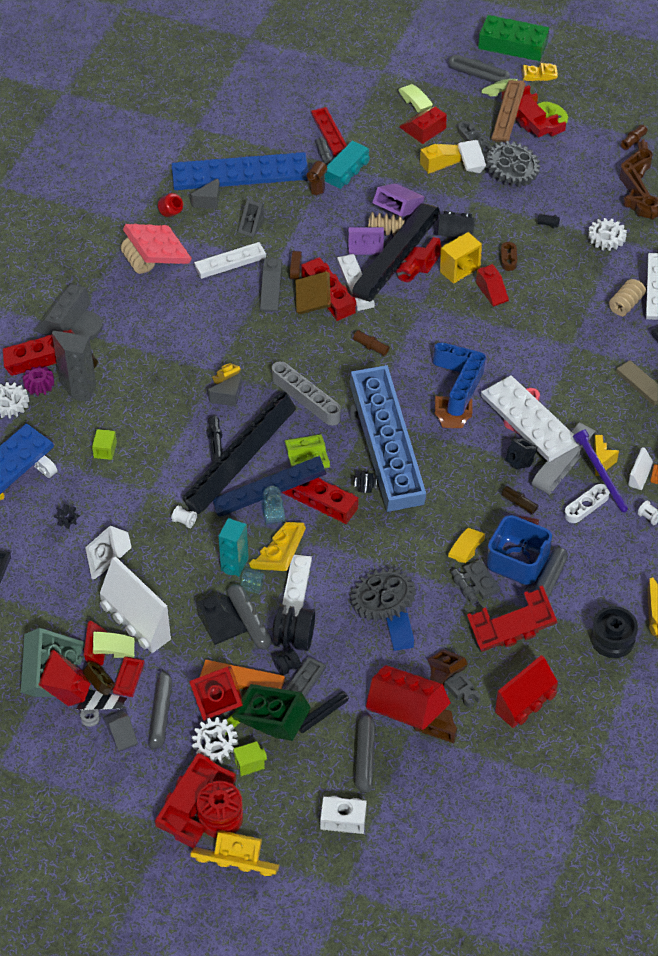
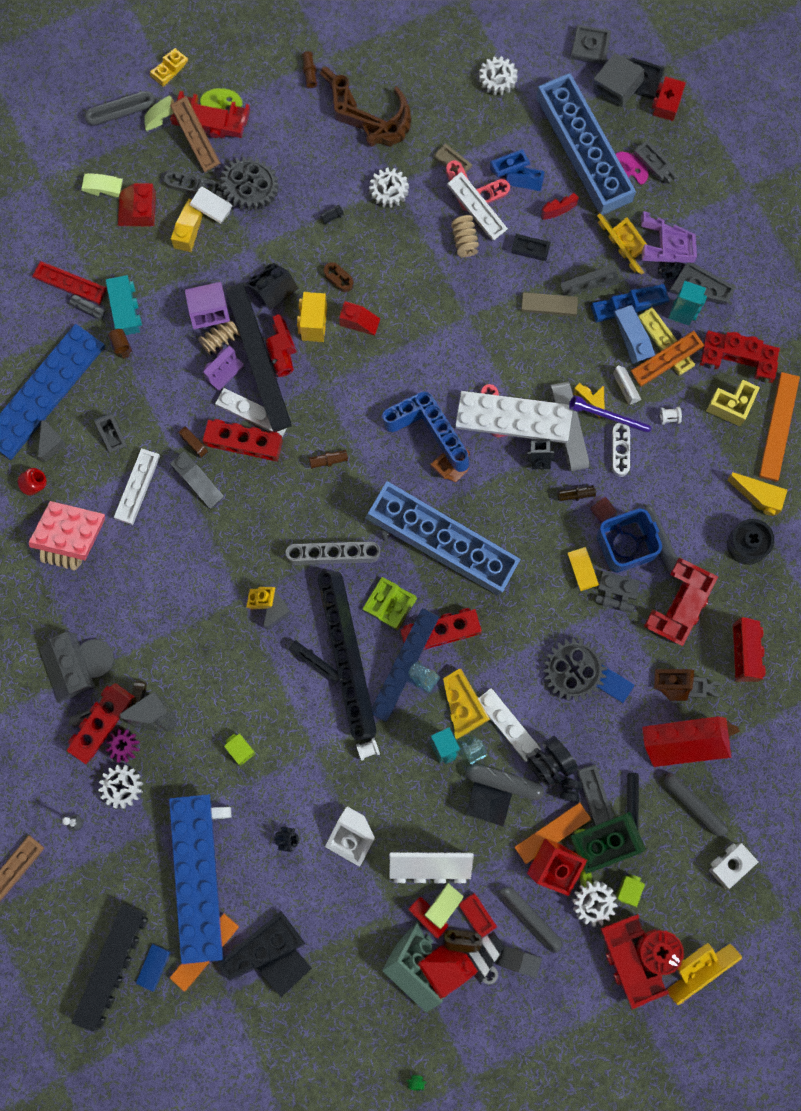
camera: 50 degrees left, 25 degrees up
(313, 293) = (240, 458): pearl gold tile -> none
(365, 482) = (461, 588): black gear -> none
(513, 38) = (114, 49): green brick -> none

